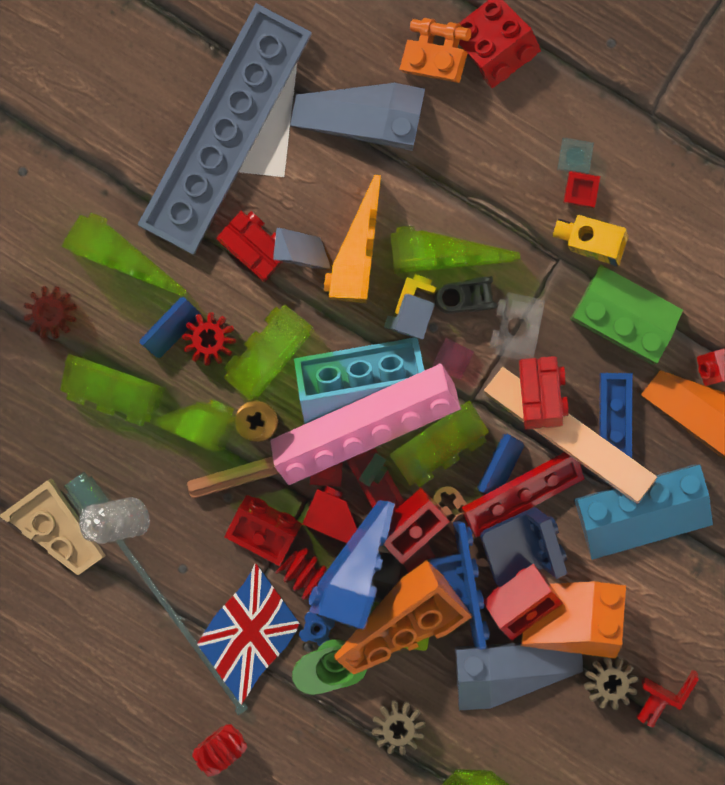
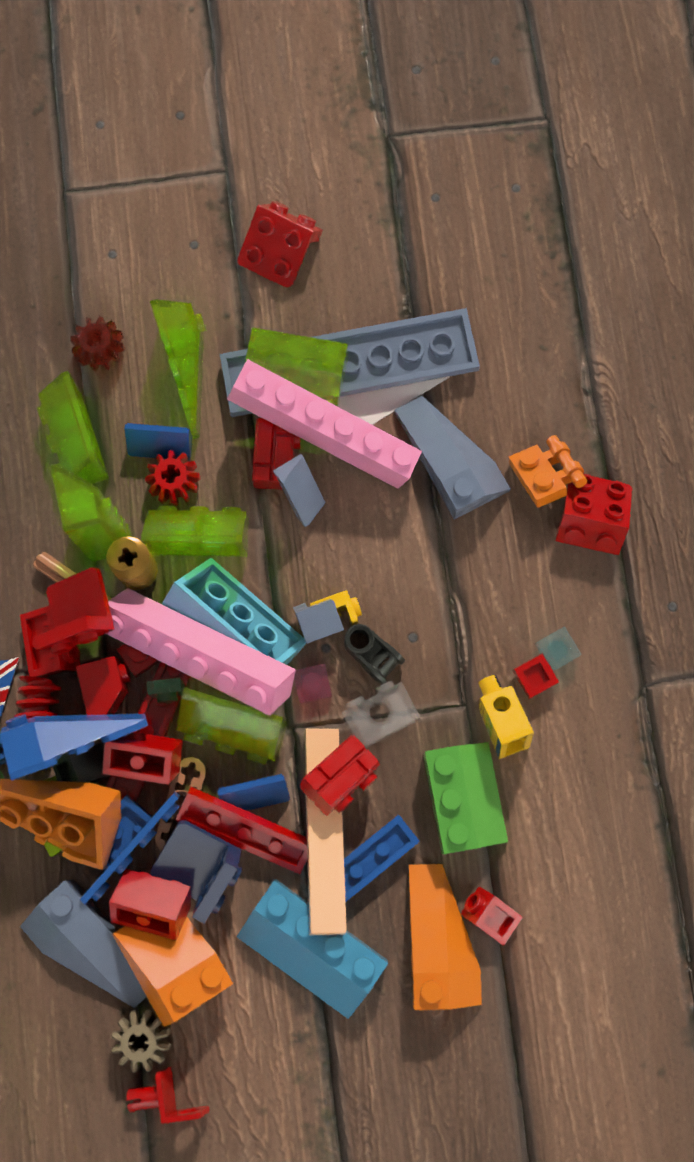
camera: 50 degrees right, 10 degrees down
(79, 104) = (277, 243): none -> red bracket
(204, 179) = (303, 360): none -> clear neon green slope
(264, 490) = (77, 611): none -> red bracket
(266, 191) = (324, 424): none -> bright pink brick
(353, 263) = (329, 539): light orange wedge -> none
(431, 251) = (380, 589): clear neon green wedge -> none

